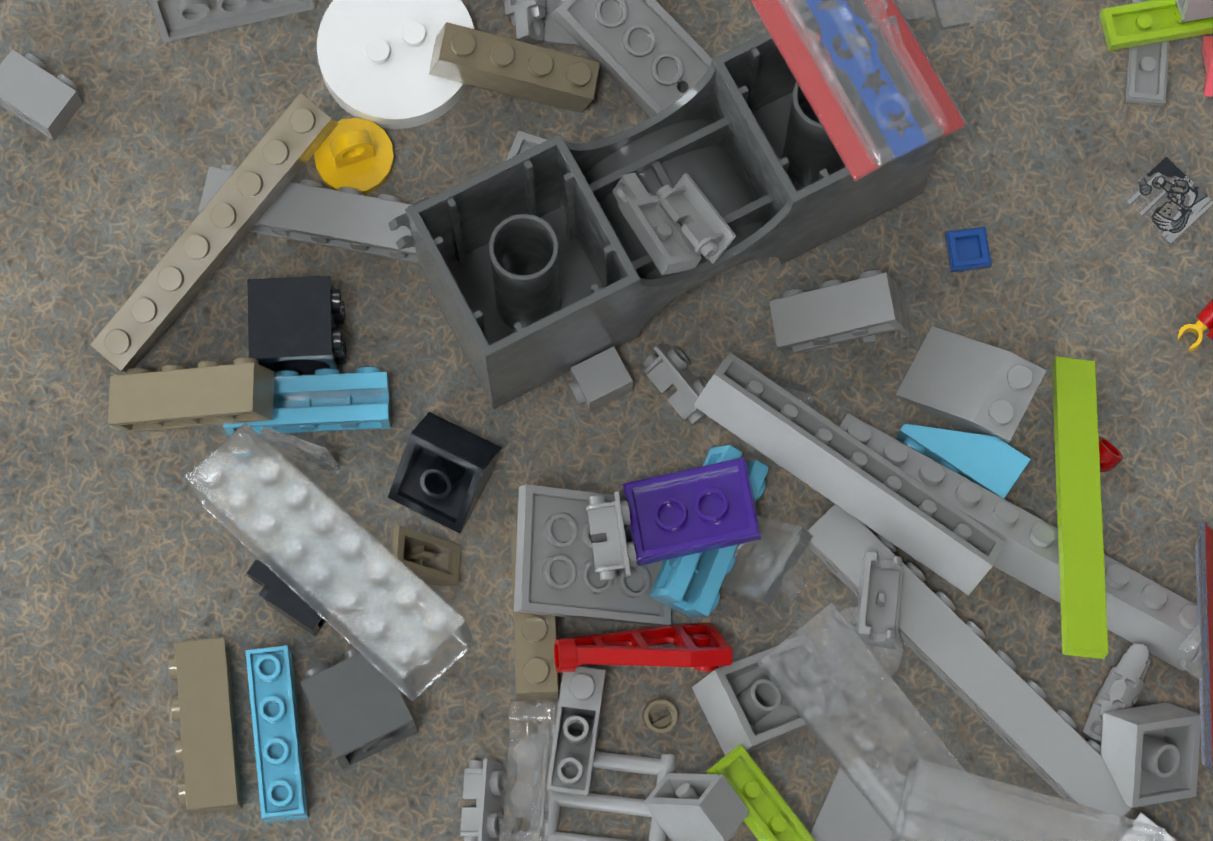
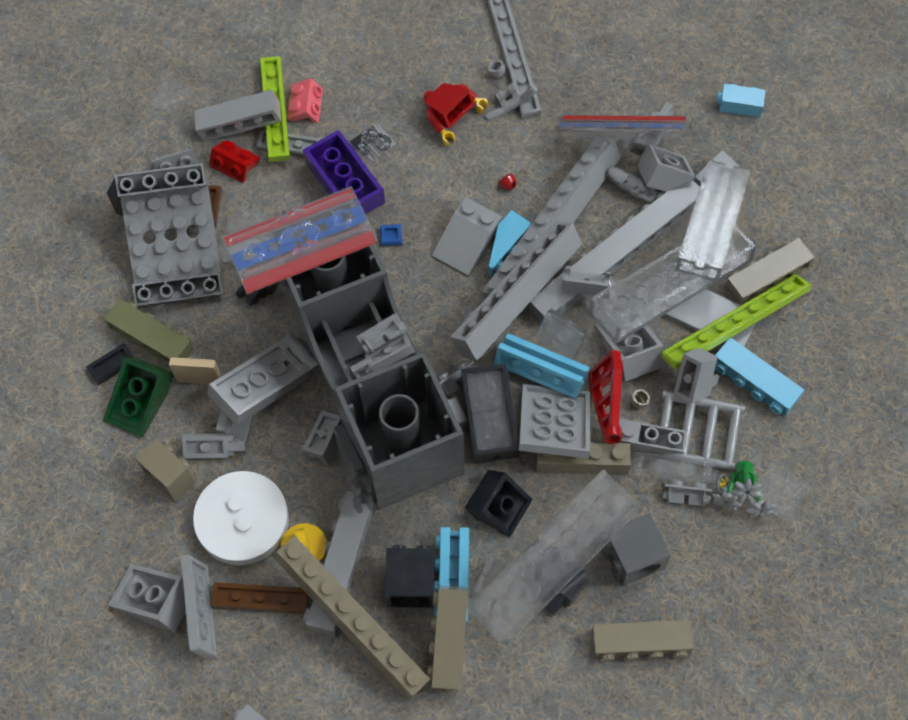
camera: 85 degrees left, 10 degrees down
(259, 81) = (259, 598): none -> reddish brown plate
(276, 734) = (648, 599): medium azure brick -> none
(427, 556) = (546, 512): dark tan slope -> none
(514, 67) = (265, 449): dark tan brick -> none
(608, 440) = (490, 413): none -> clear brick
(615, 552) = (536, 406): light grey hinge -> none
(692, 511) = (534, 366): dark purple tile -> none
(839, 313) = (424, 294): light grey wedge -> none
(1079, 509) = (541, 186): lime tile -> none
(1107, 125) = (340, 167): none -> dark purple brick

